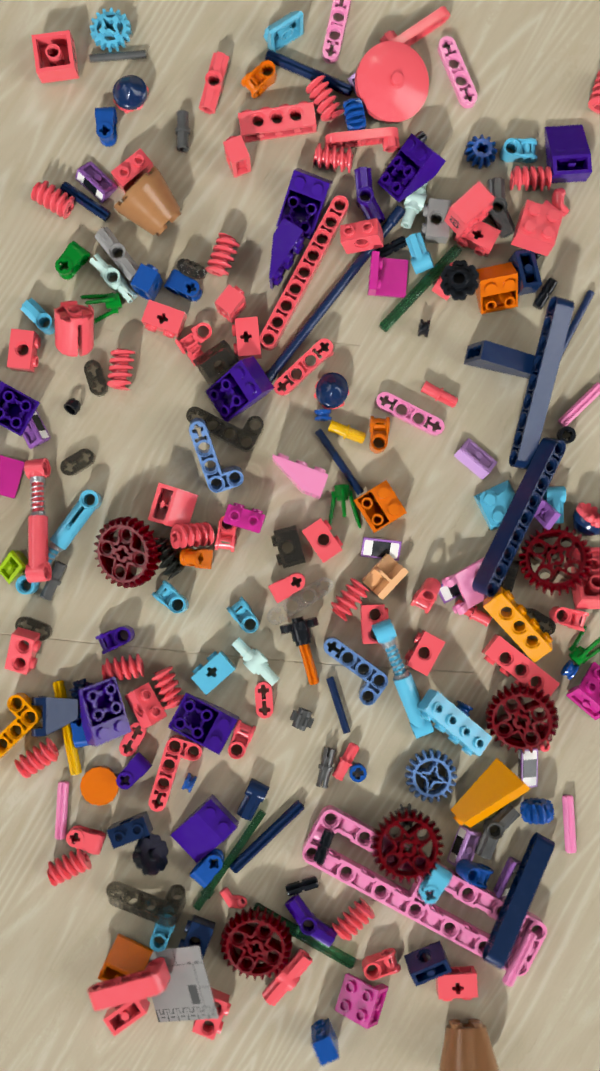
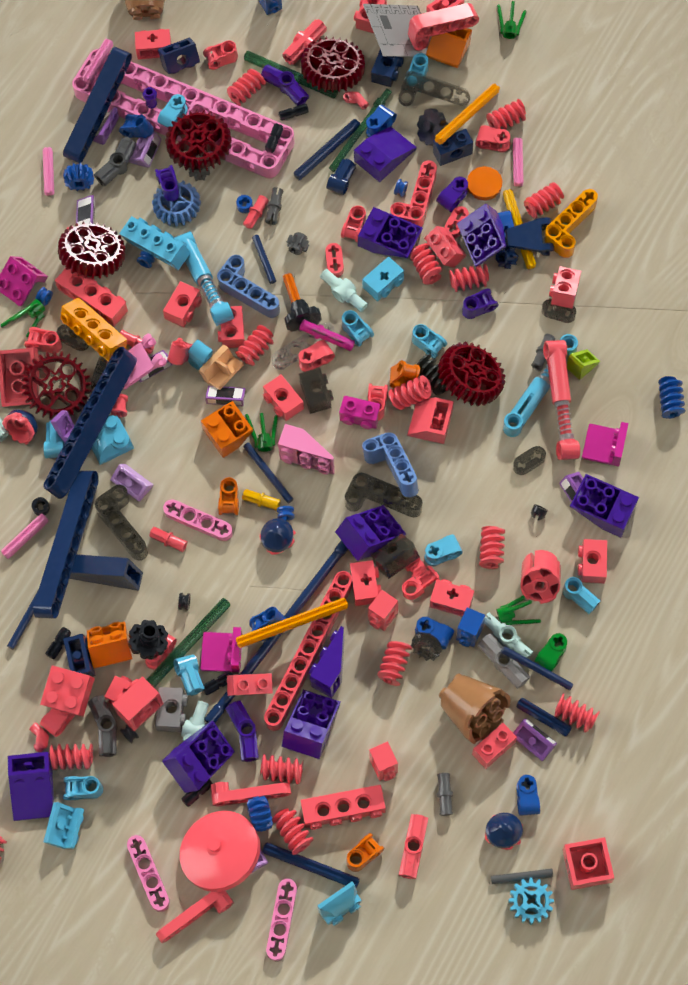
camera: 175 degrees left, 20 degrees down
(56, 983) = (510, 29): none -> green plant
(87, 242) = (537, 668): none -> dark blue bar
(92, 380) = (513, 541): clear smoke beam -> none
(111, 867) = (466, 114): none -> light orange axle
(166, 370) = (444, 549): none -> medium azure piece
(281, 608) = (308, 327): none -> dark pink pin
(301, 364) = (303, 554): coral beam -> none
(319, 290) = (292, 622): none -> light orange axle
(346, 297) = (266, 618): none -> blue piece
(361, 1001) = (238, 26): dark pink bracket -> none
(405, 589) = (199, 354): none -> medium azure piece
(441, 797) = (167, 180): none -> dark purple piece
(460, 905) = (149, 95): none -> dark purple pin
(482, 145) = (129, 779): blue gear -> none
(482, 410) = (123, 526): none -> clear smoke beam
(488, 537) = (120, 406): none -> coral bush
(488, 794) = (120, 190): light orange slope -> none
(535, 114) = (63, 826): none -> medium azure bracket

